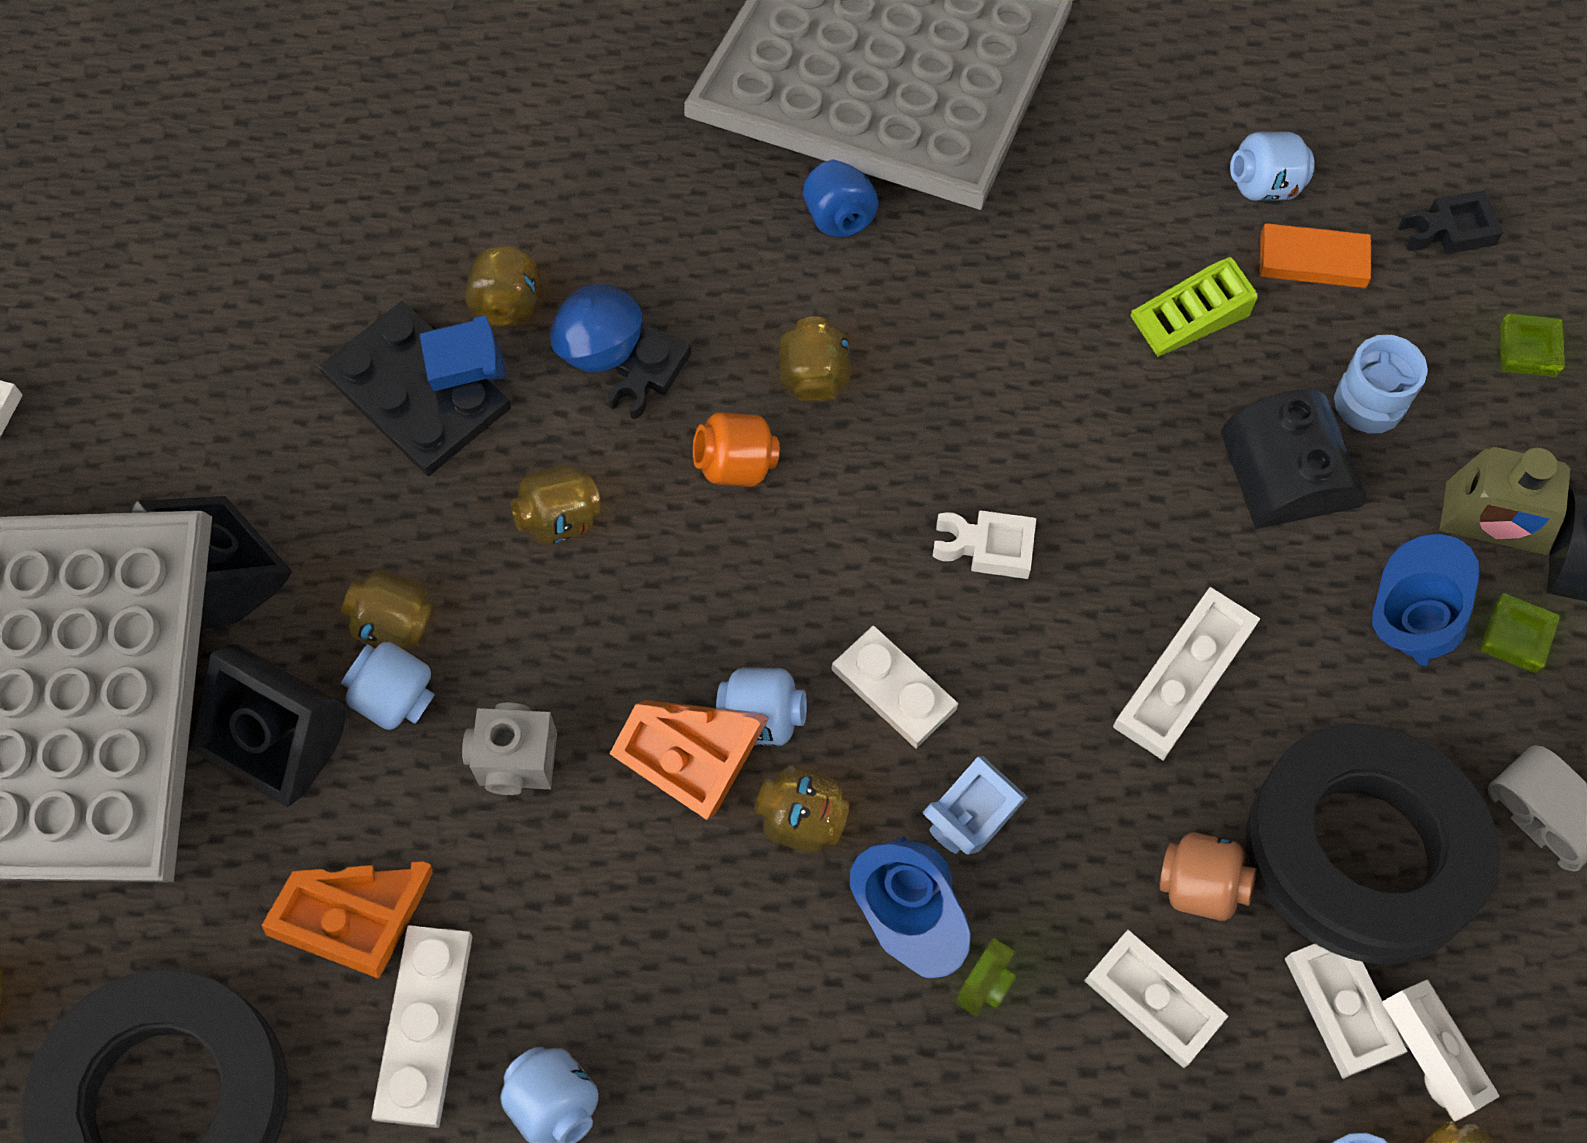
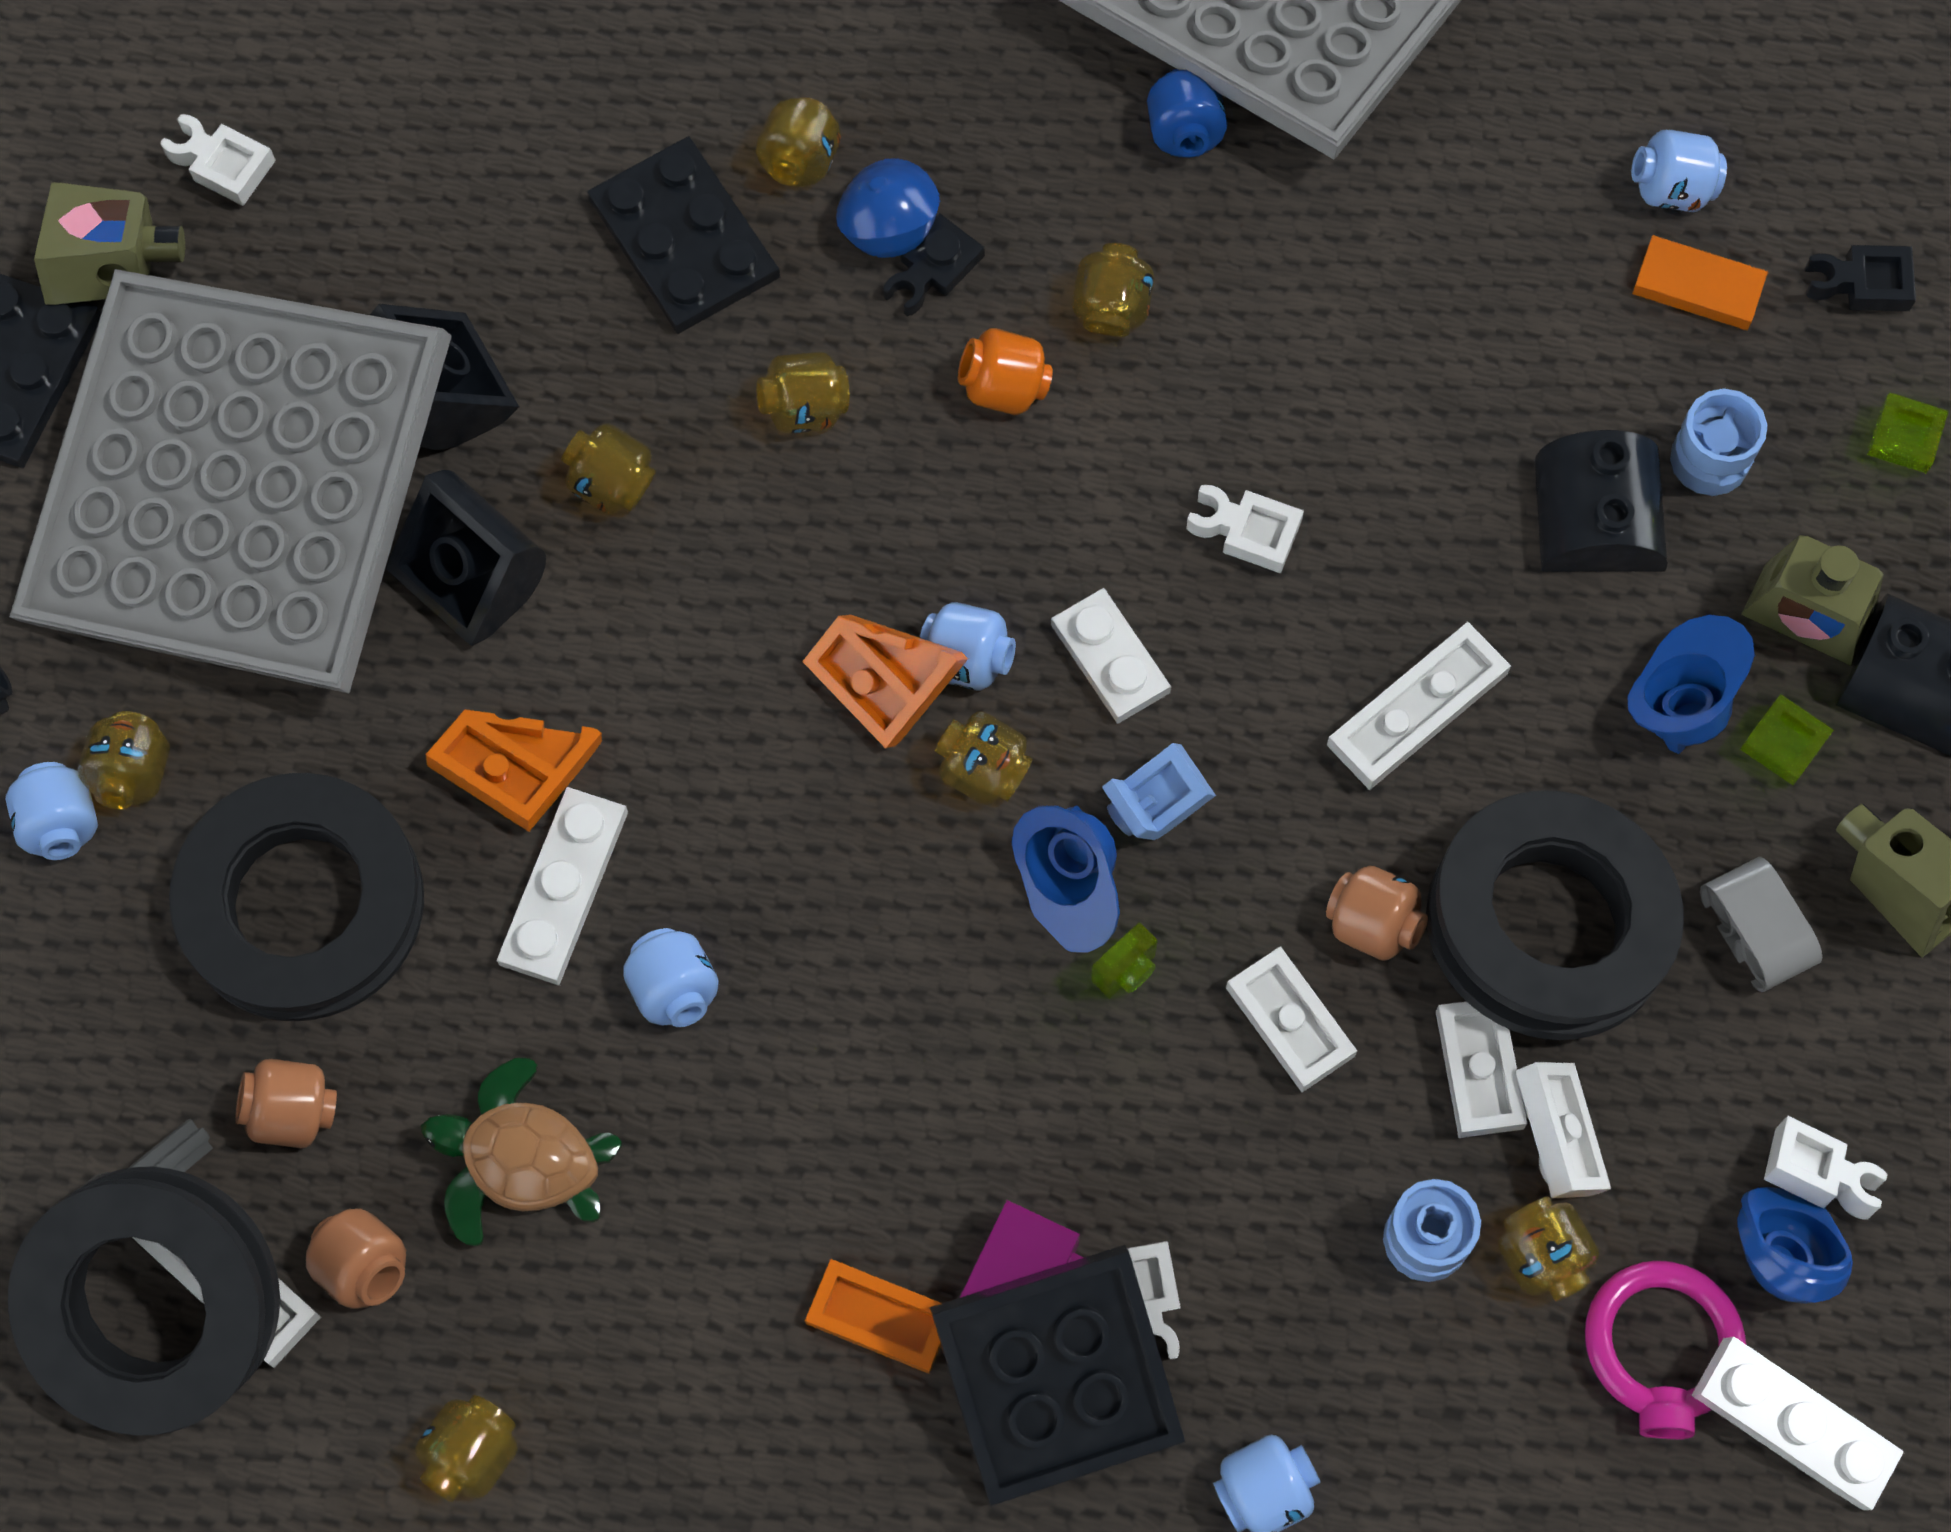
camera: 15 degrees right, 5 degrees up
(388, 685) = (594, 544): light blue head -> none
(462, 354) = (739, 210): blue tile -> none
(511, 748) = (704, 634): light grey brick -> none
(1223, 288) = (1562, 289): lime slope -> none

